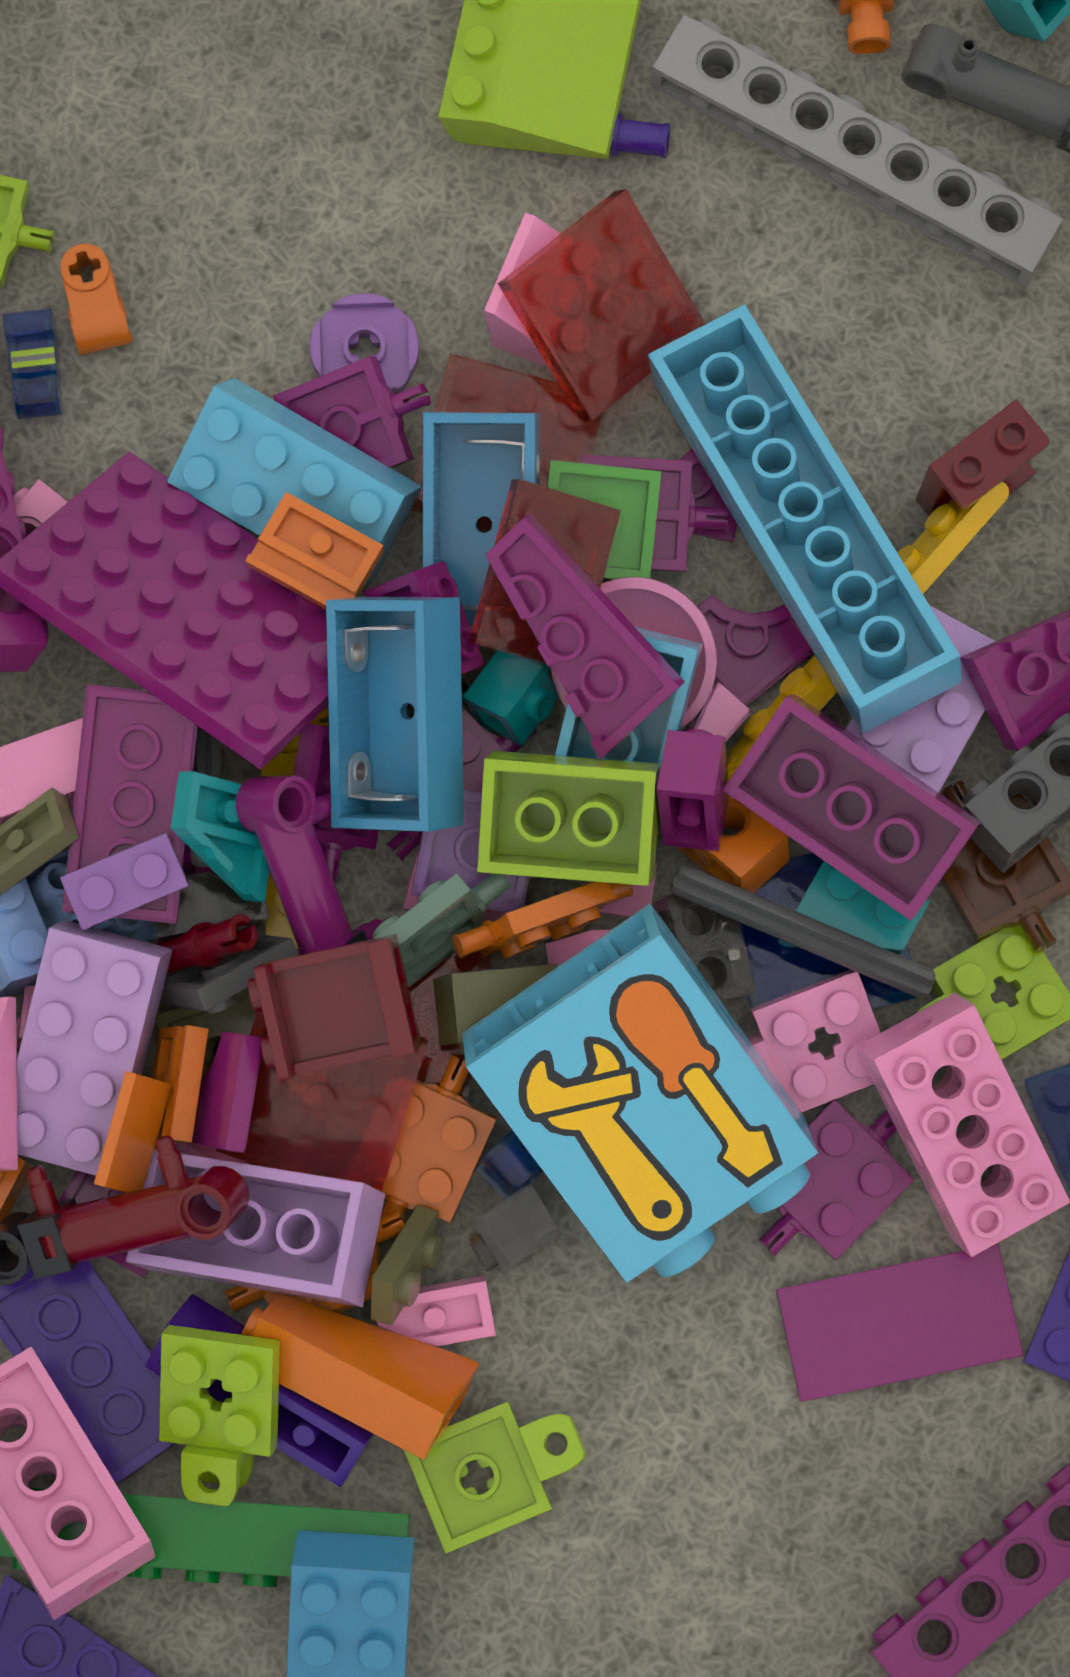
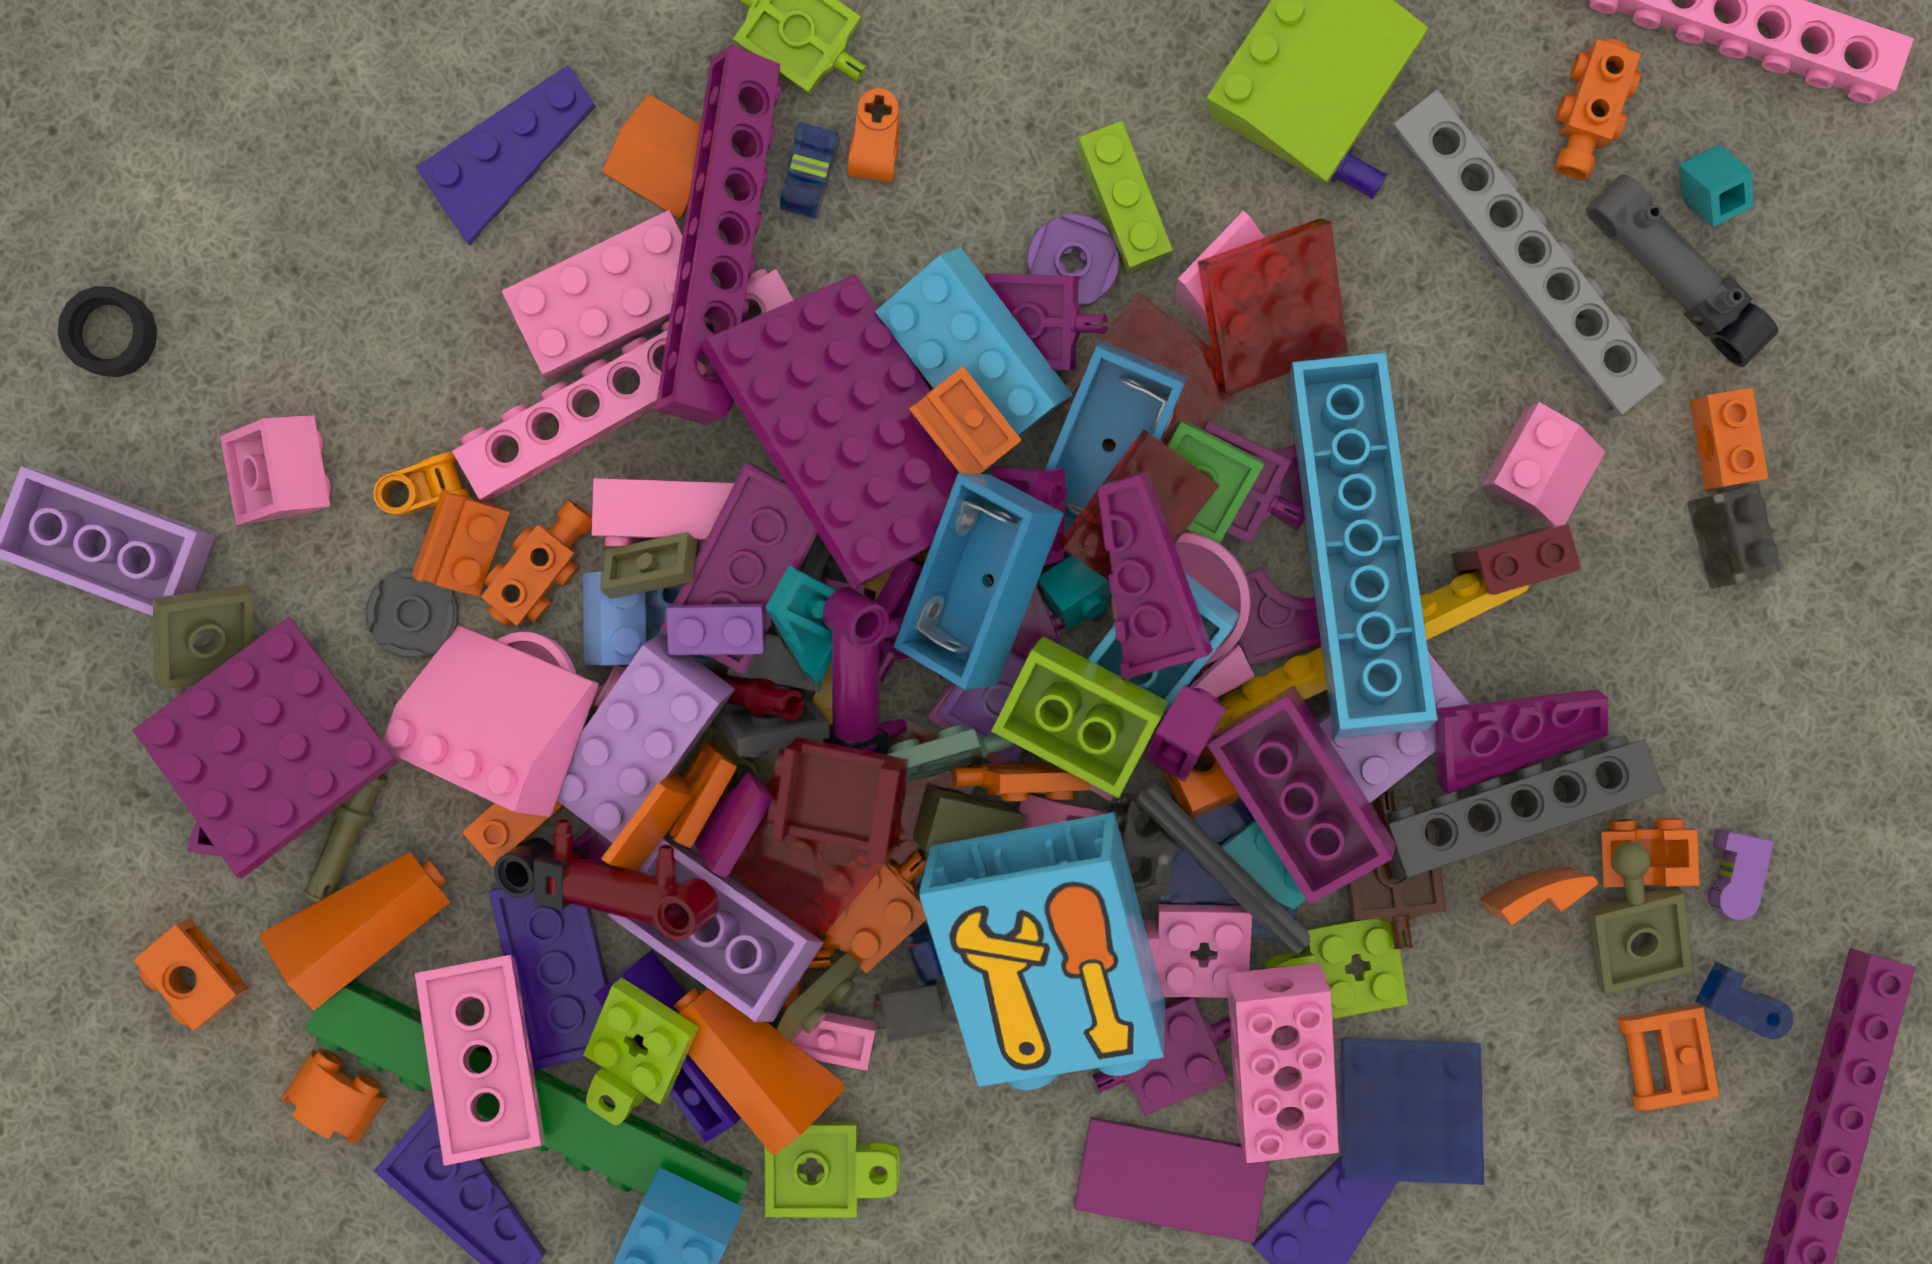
camera: 20 degrees right, 10 degrees up
(393, 258) = (1123, 197): none -> lime brick
(974, 359) = (1544, 465): none -> bright pink slope

